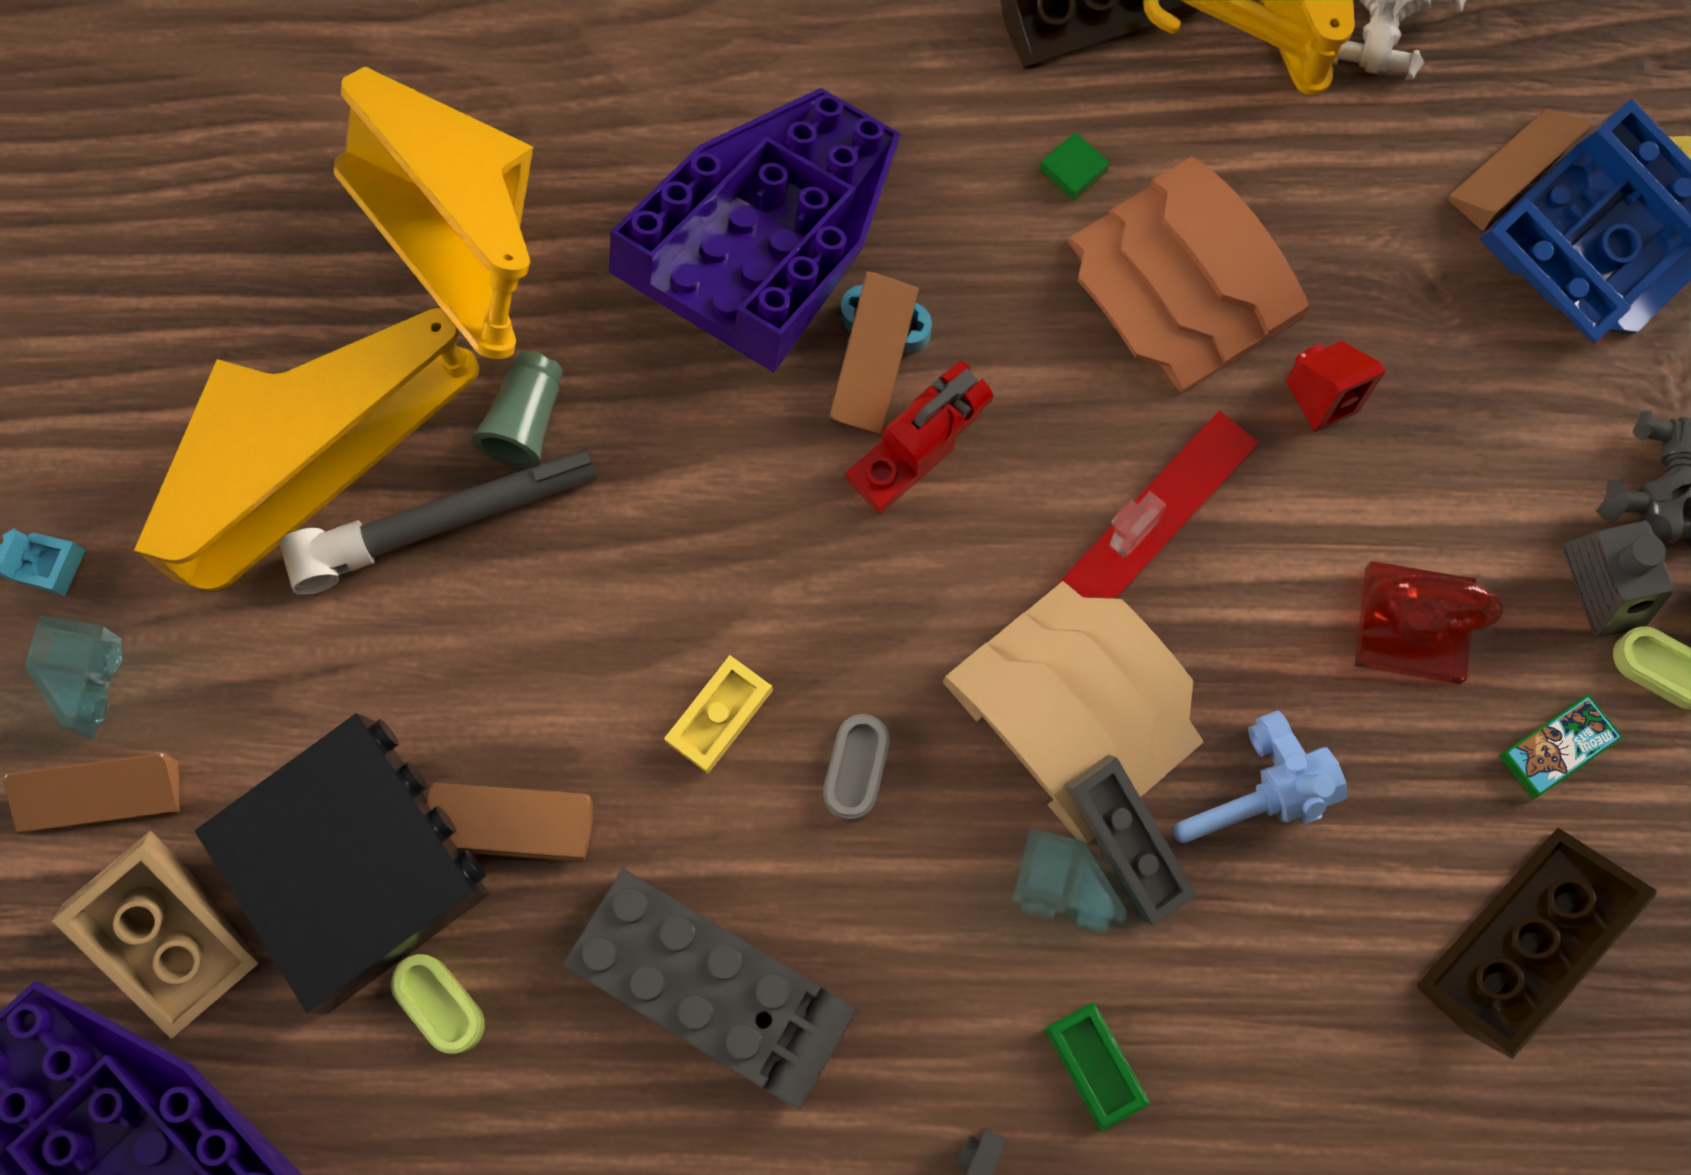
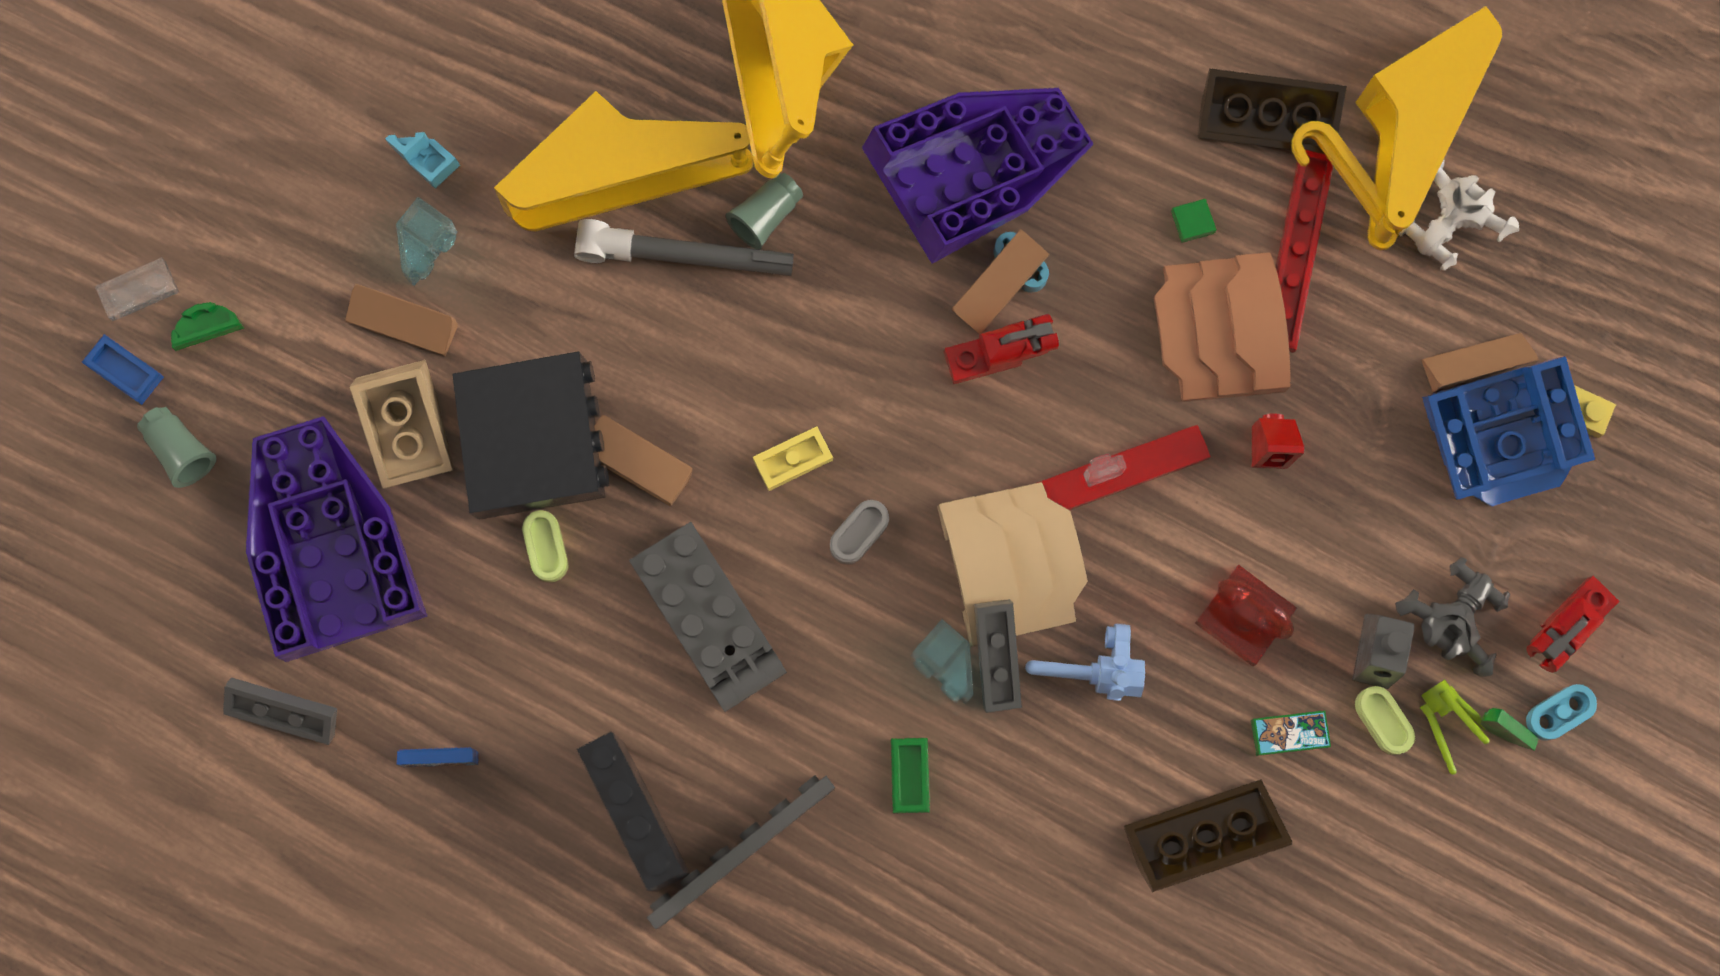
camera: 15 degrees right, 5 degrees up
(1215, 115) = (1301, 238): none -> red tile

